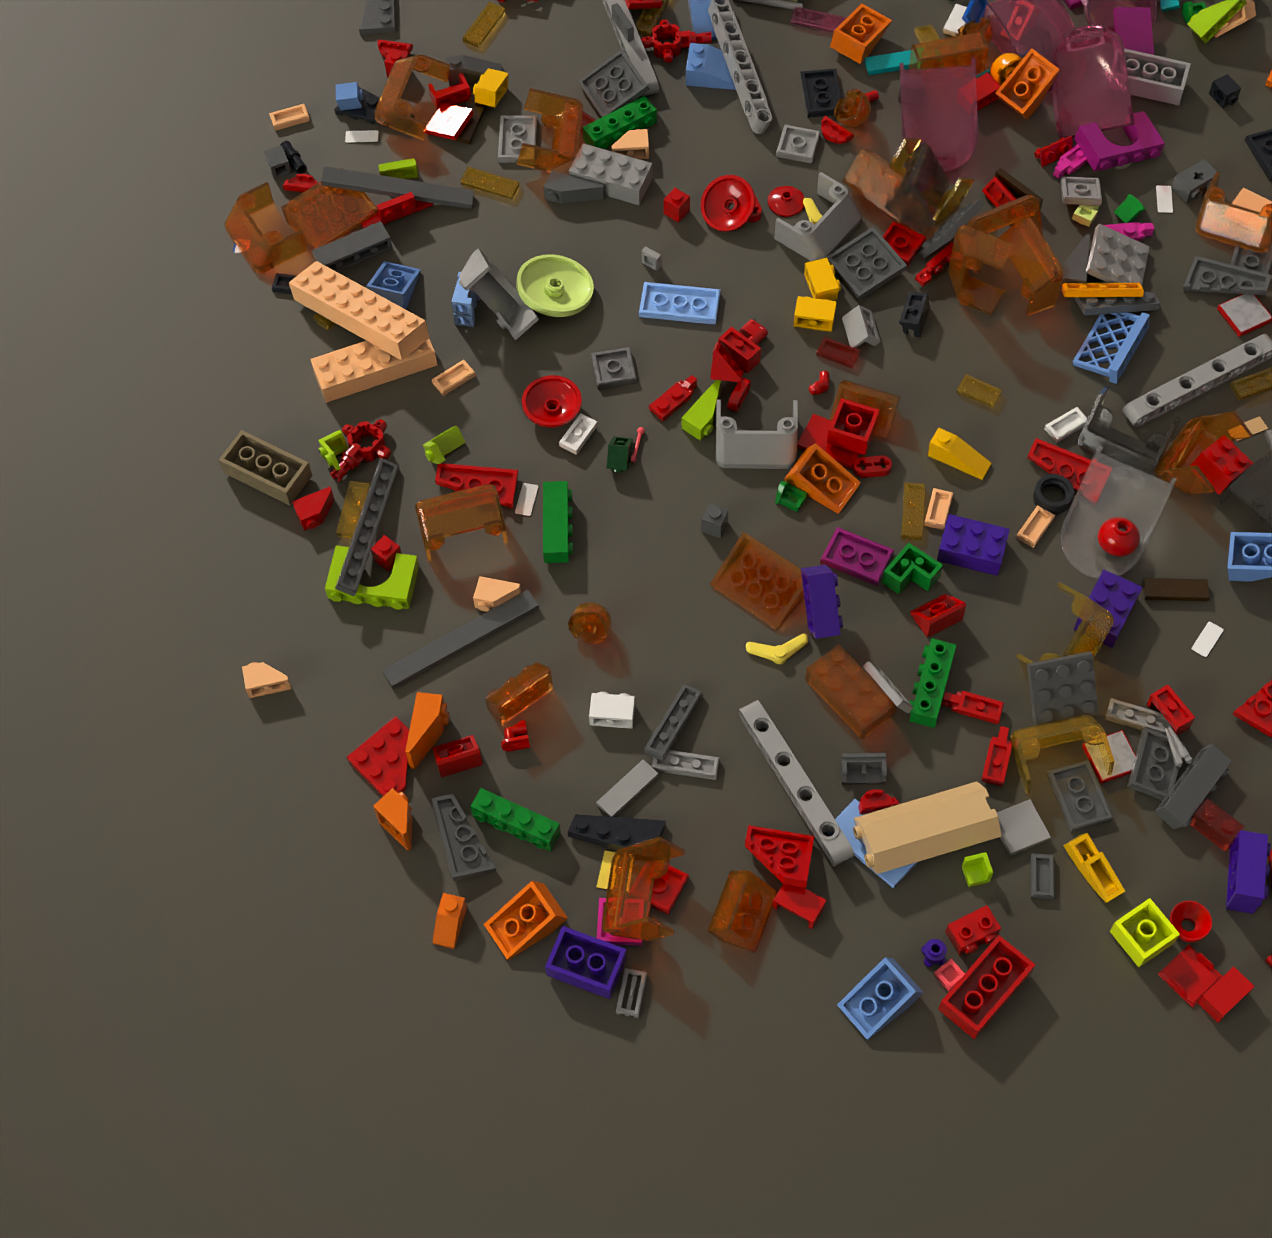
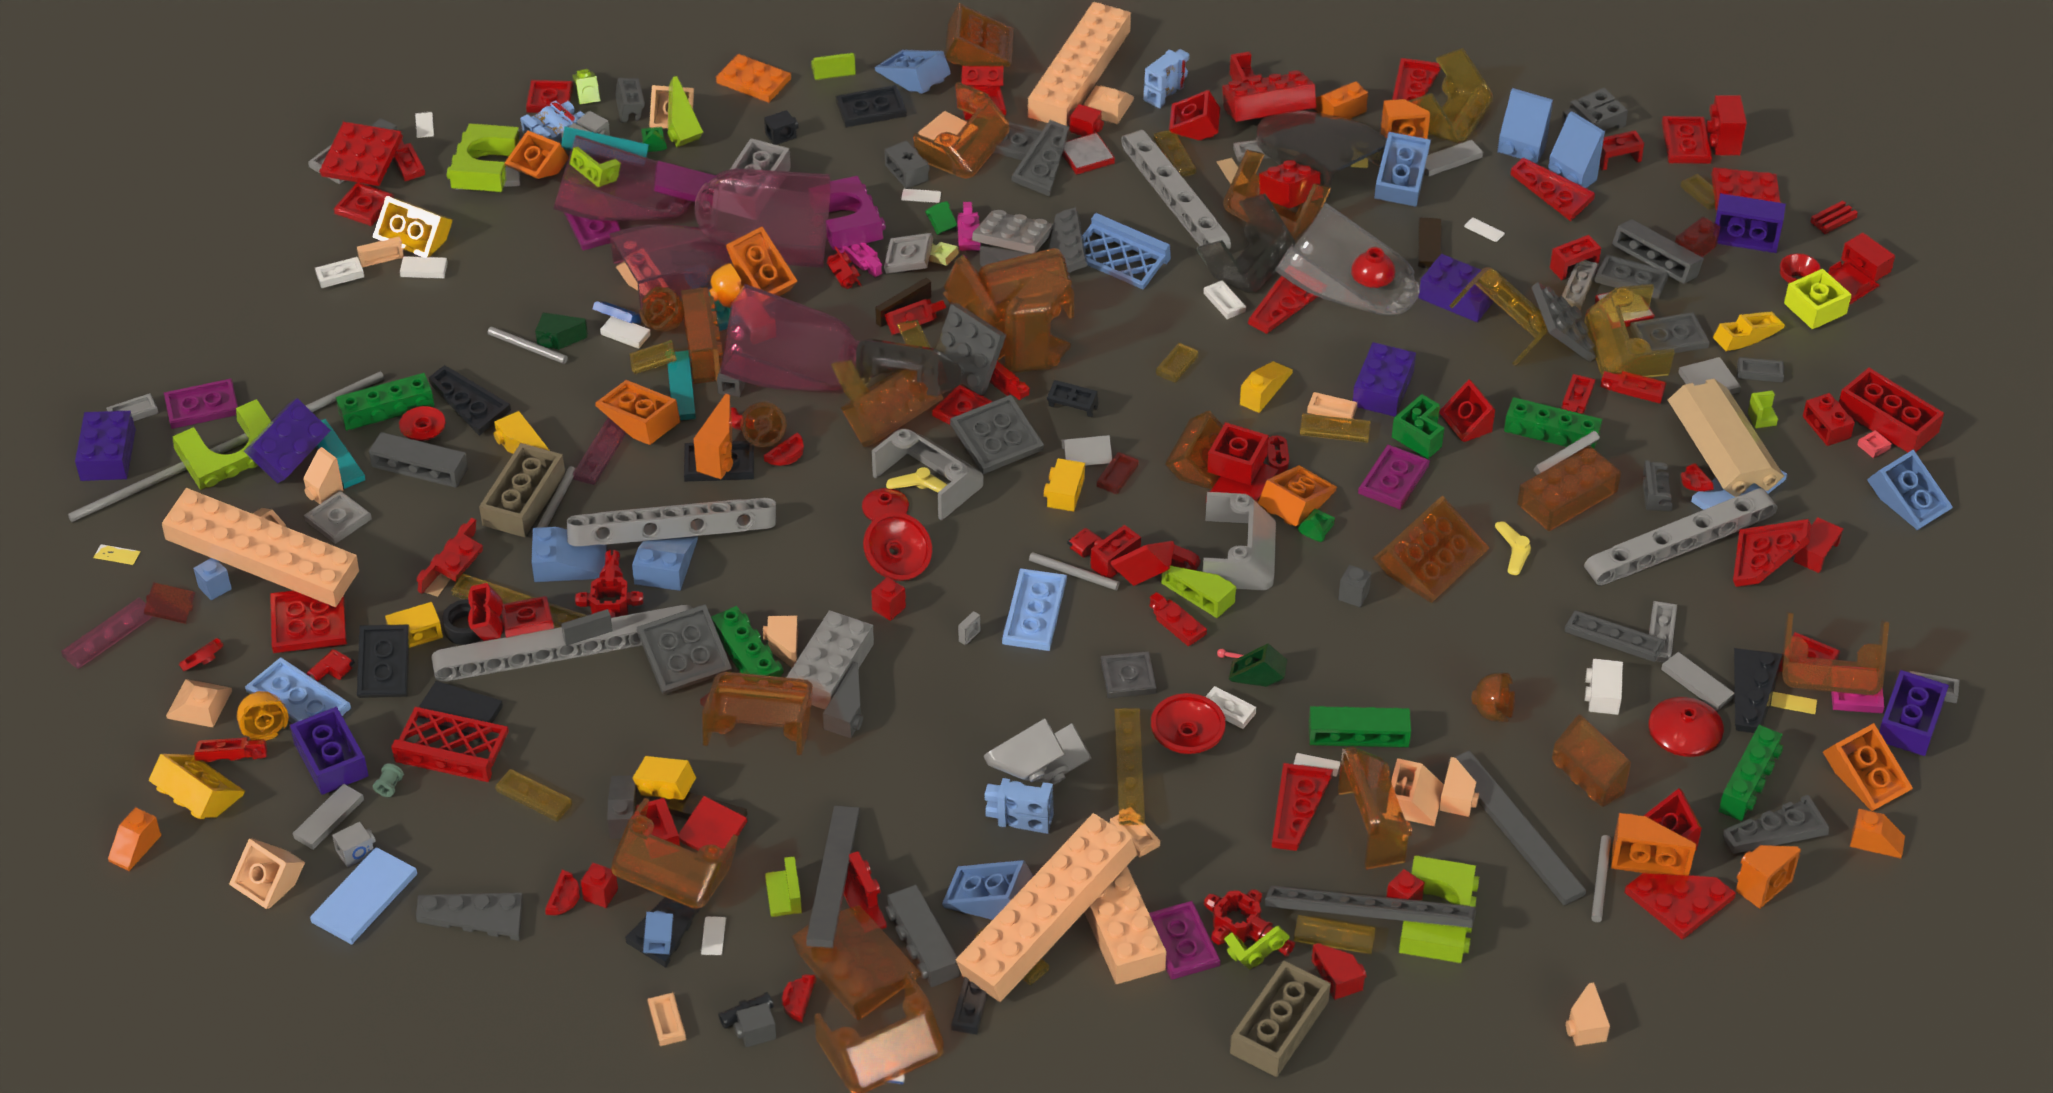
camera: 90 degrees left, 15 degrees down
(350, 409) = (1185, 940): none -> magenta tile
(385, 697) = (1601, 878): none -> light grey bar
(443, 444) = (1255, 846): lime bracket -> none
(485, 558) = (1417, 791): none -> light nougat slope
(489, 183) = (819, 792): clear yellow tile -> none
(514, 132) = (747, 761): light grey tile -> none
(515, 369) = (1129, 766): none -> clear yellow tile
(515, 743) = (1641, 782): red piece -> none
(554, 285) = (1004, 712): yellowish green dish -> none
(578, 789) = (1686, 726): none -> red dish
(724, 324) = (1074, 571): none -> light grey bar
(742, 910) = (1830, 591): clear orange slope -> none
(798, 144) = (798, 487): light grey tile -> none
(820, 386) = (1163, 487): red arm -> none
(821, 279) = (1018, 476): yellow brick -> none
(821, 601) = (1475, 487): dark purple brick -> none
(826, 77) = (714, 442): none -> orange slope
(931, 957) = (1854, 450): dark purple brick -> none
(1035, 526) = (1353, 335): light nougat tile -> none
(1056, 481) = (1317, 327): black tyre -> none
(1102, 290) = (1059, 232): light orange tile -> none
(1178, 750) = (1618, 256): light grey piece -> none

